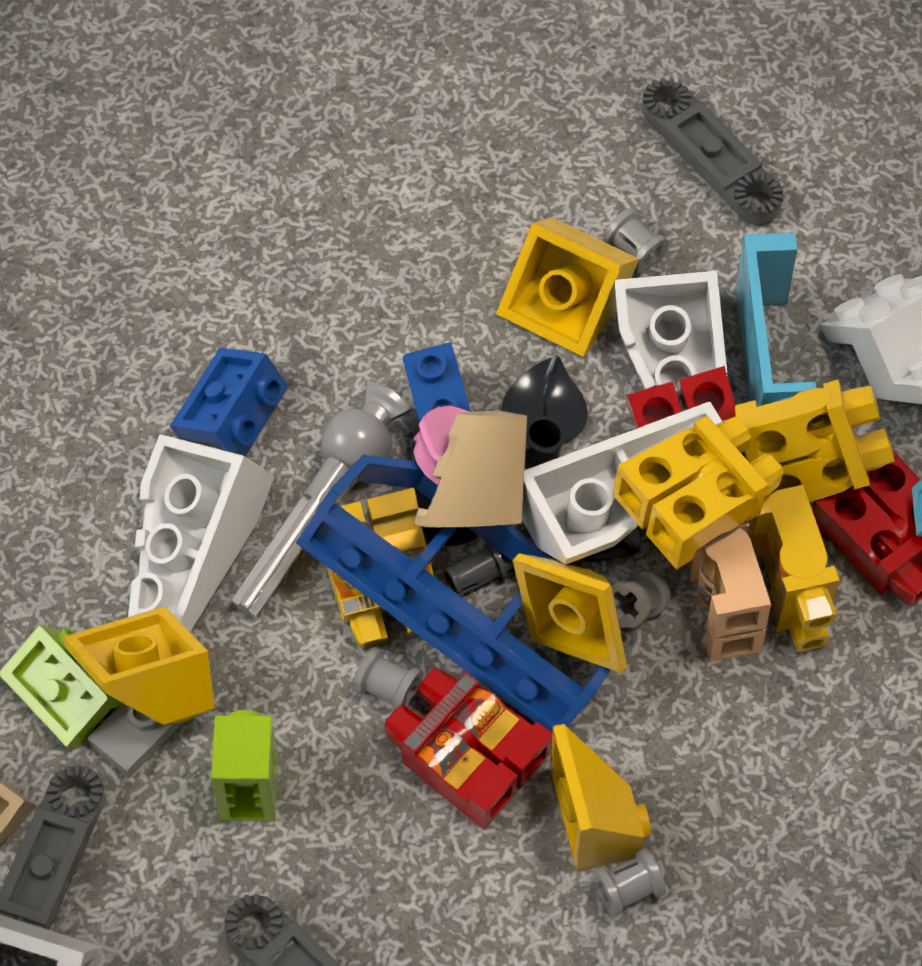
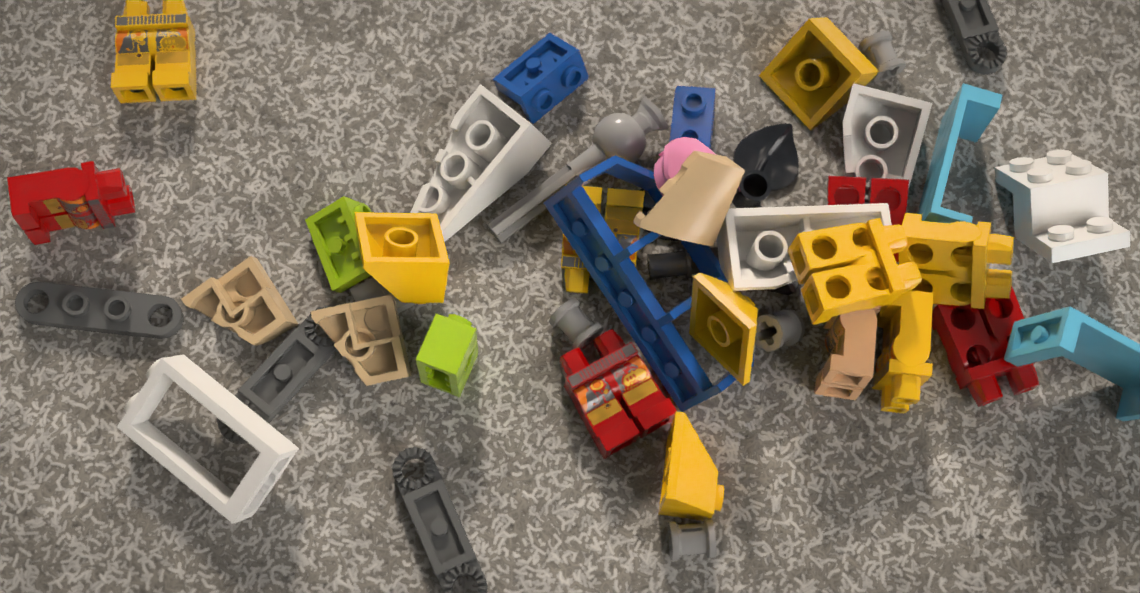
camera: 15 degrees right, 10 degrees up
(134, 785) = (368, 337): none -> tan slope

